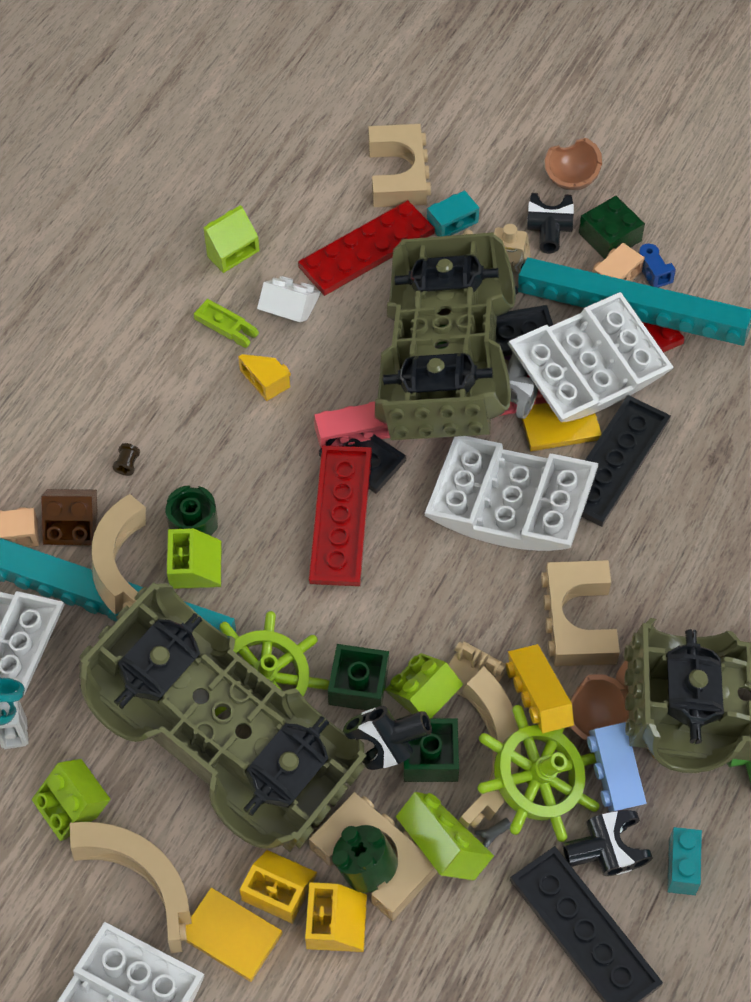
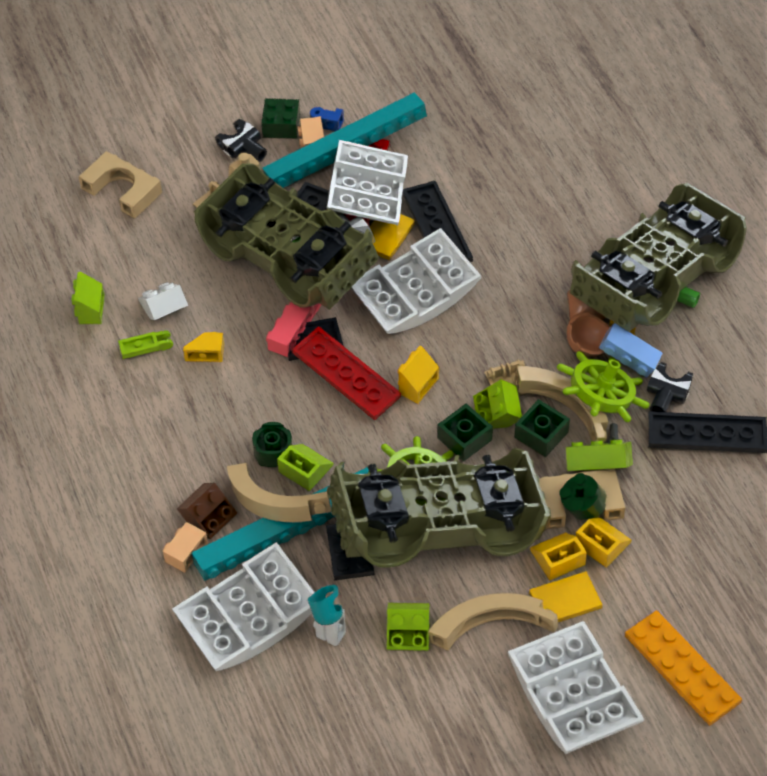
camera: 50 degrees left, 5 degrees down
(126, 459) = (194, 456): dark brown bush -> none
(364, 247) = (163, 241): red plate -> none
(388, 735) = (525, 430): black connector -> none
(392, 580) = (417, 375): none -> yellow slope
(453, 214) = (188, 183): teal brick -> none
(539, 688) = (555, 349): yellow brick -> none
(569, 643) = (531, 324): tan arch -> none
(575, 165) = (220, 101): nougat cylinder -> none
(684, 861) = (707, 361): teal brick -> none

